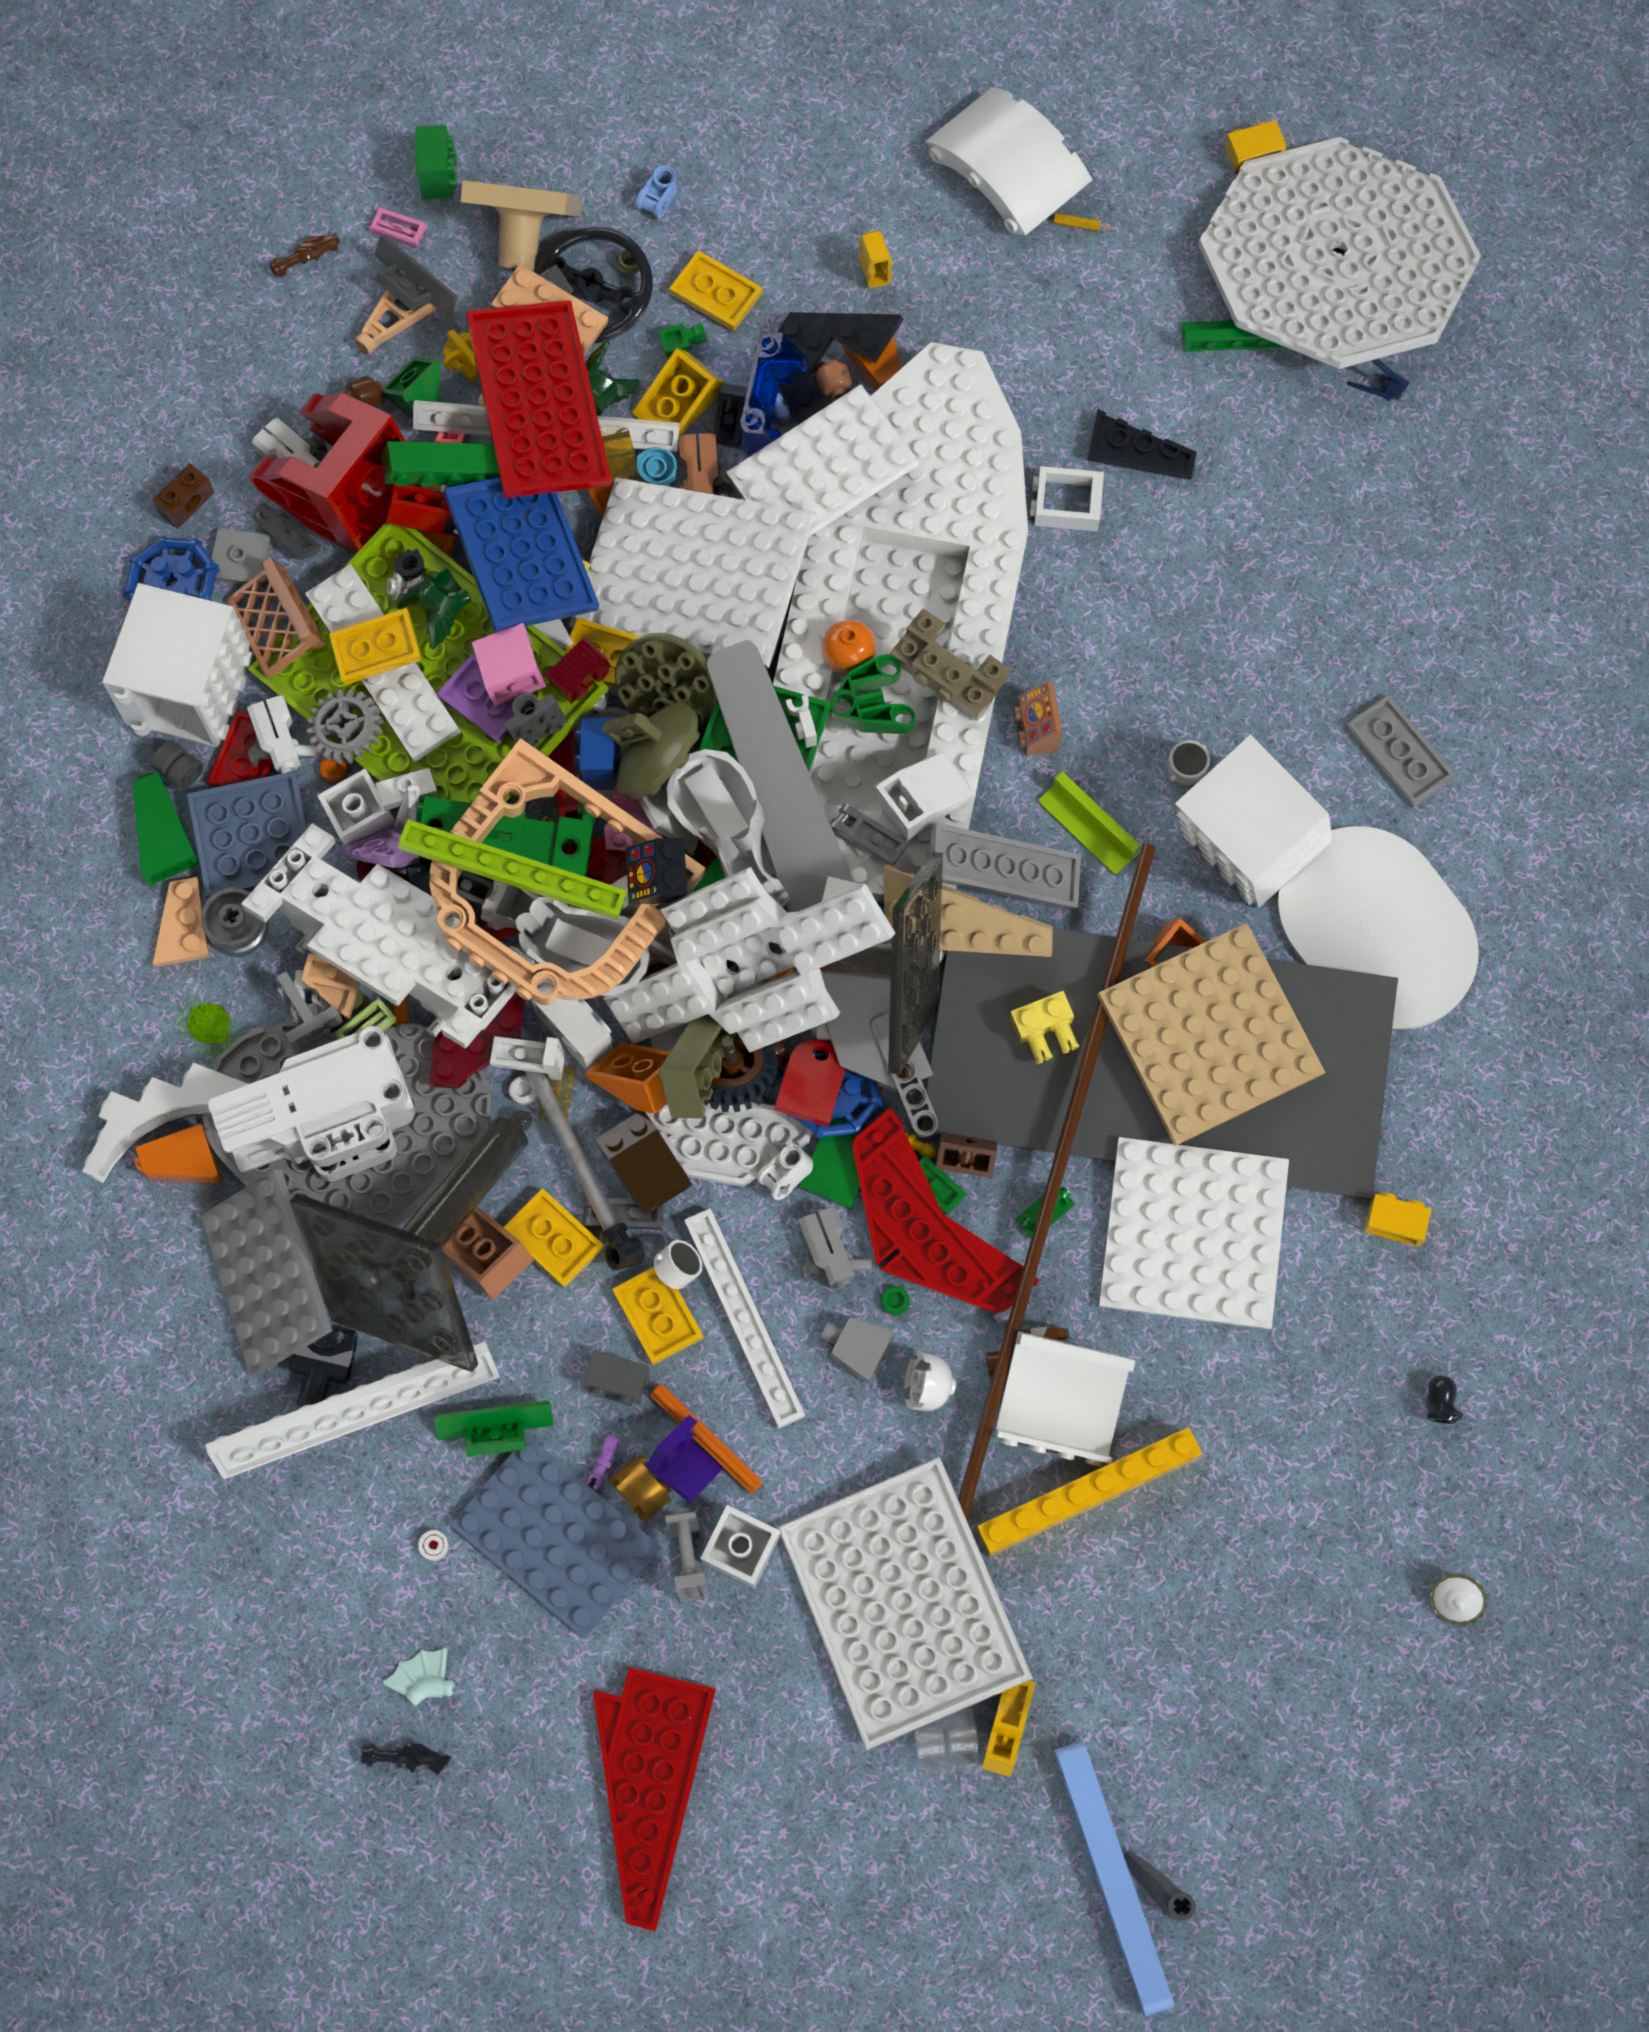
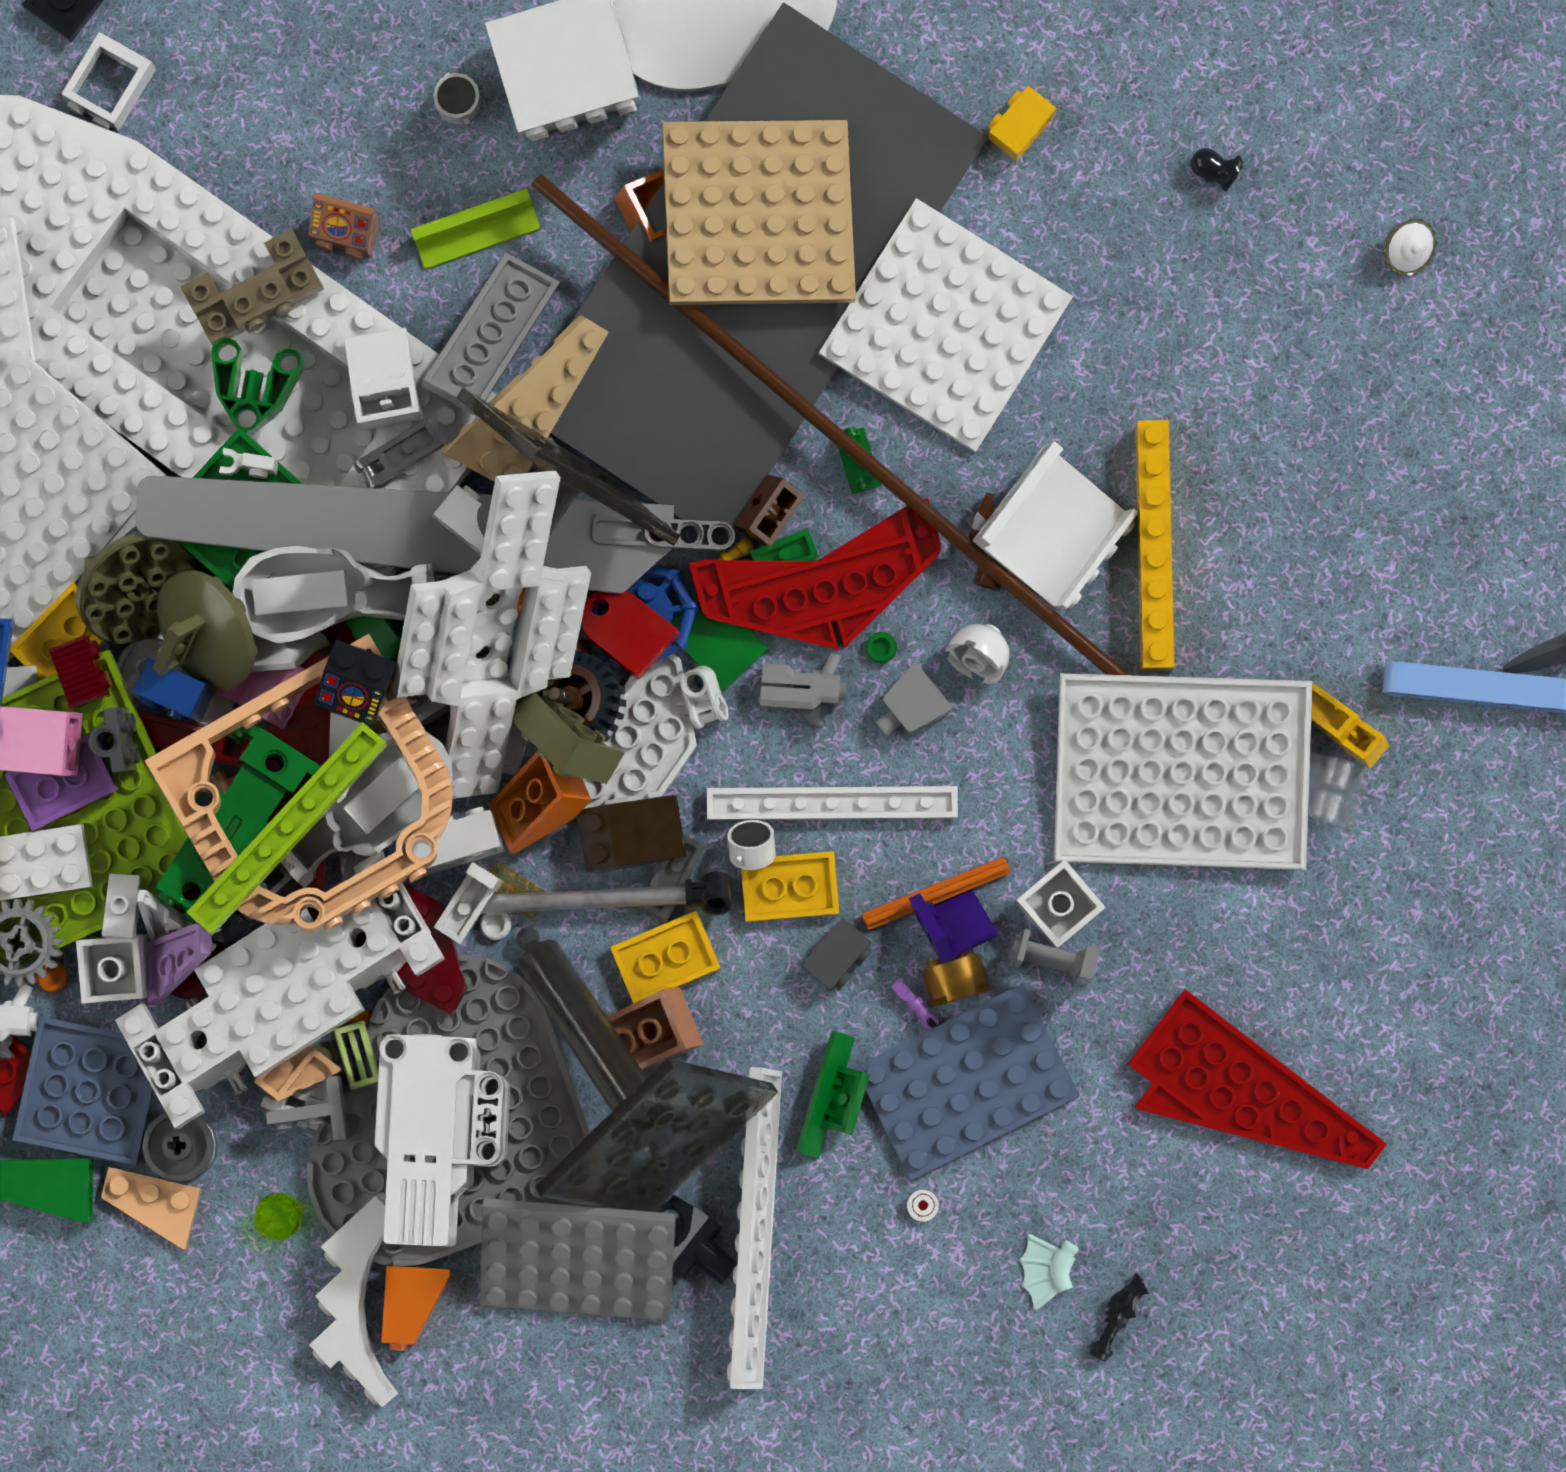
camera: 60 degrees left, 10 degrees up
(848, 646) = (183, 382): orange cylinder -> none
(1042, 1017) = (665, 379): light yellow brick -> none

